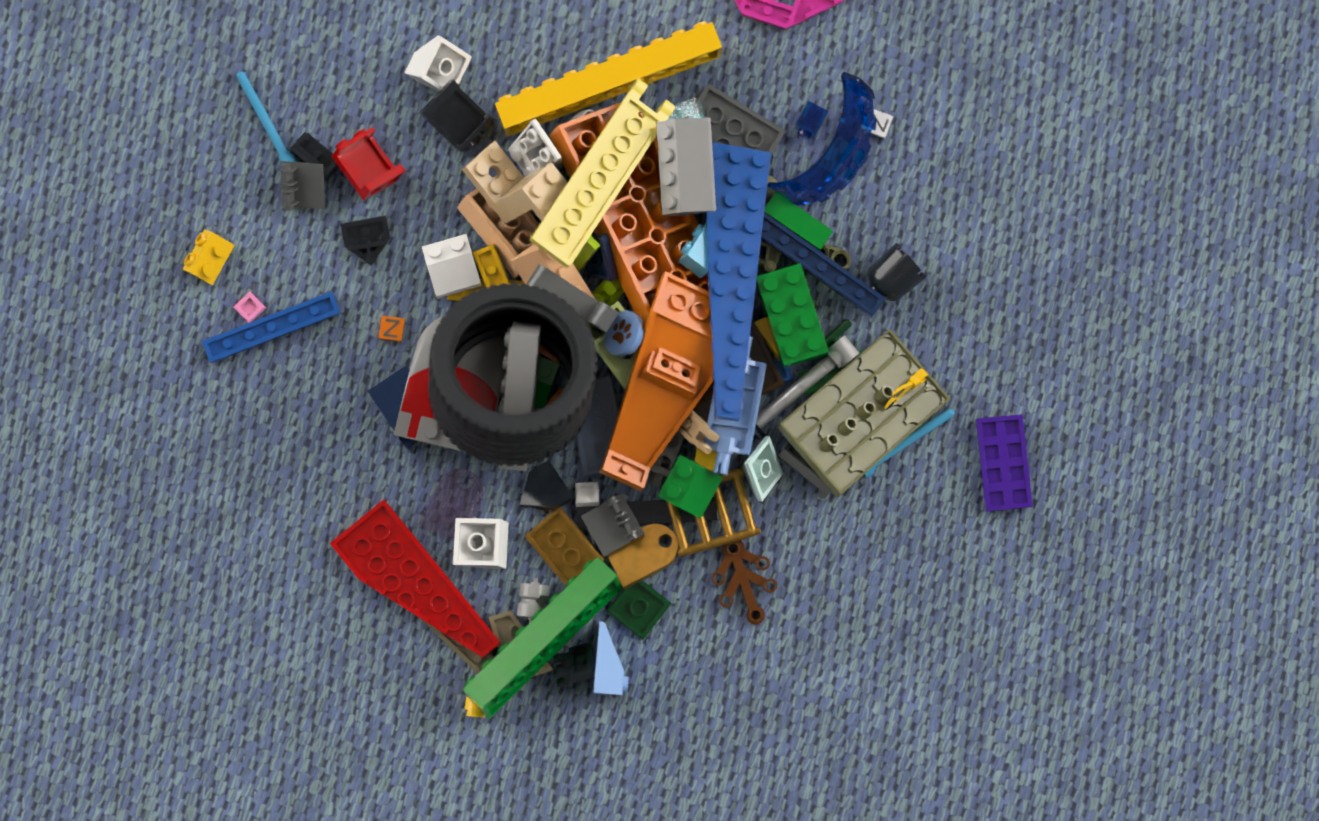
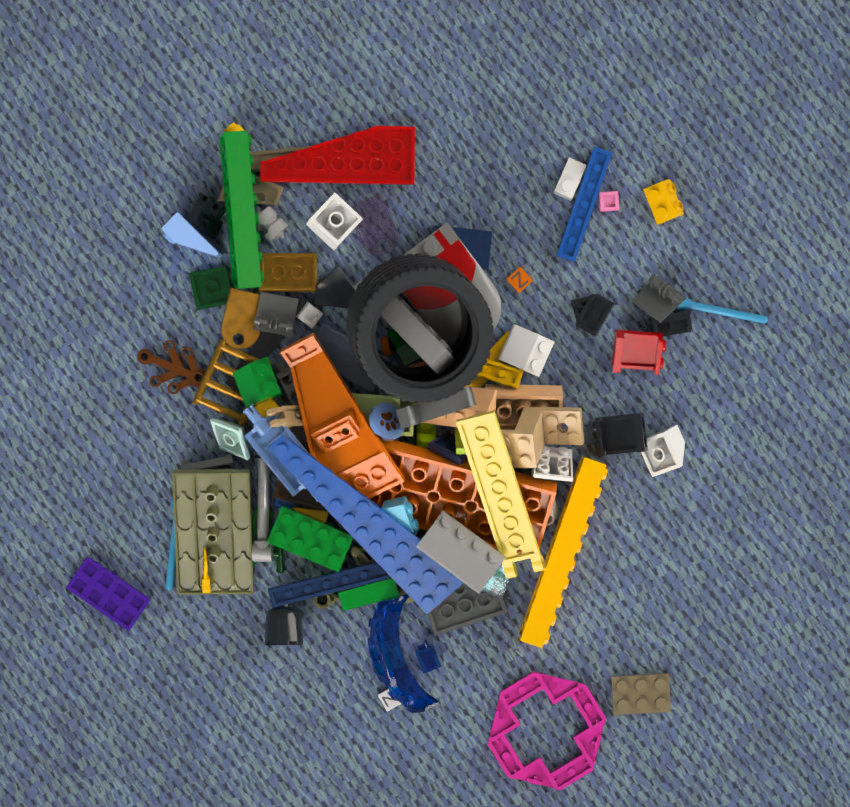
camera: 130 degrees right, 5 degrees up
(259, 359) = (569, 179): none -> white arch

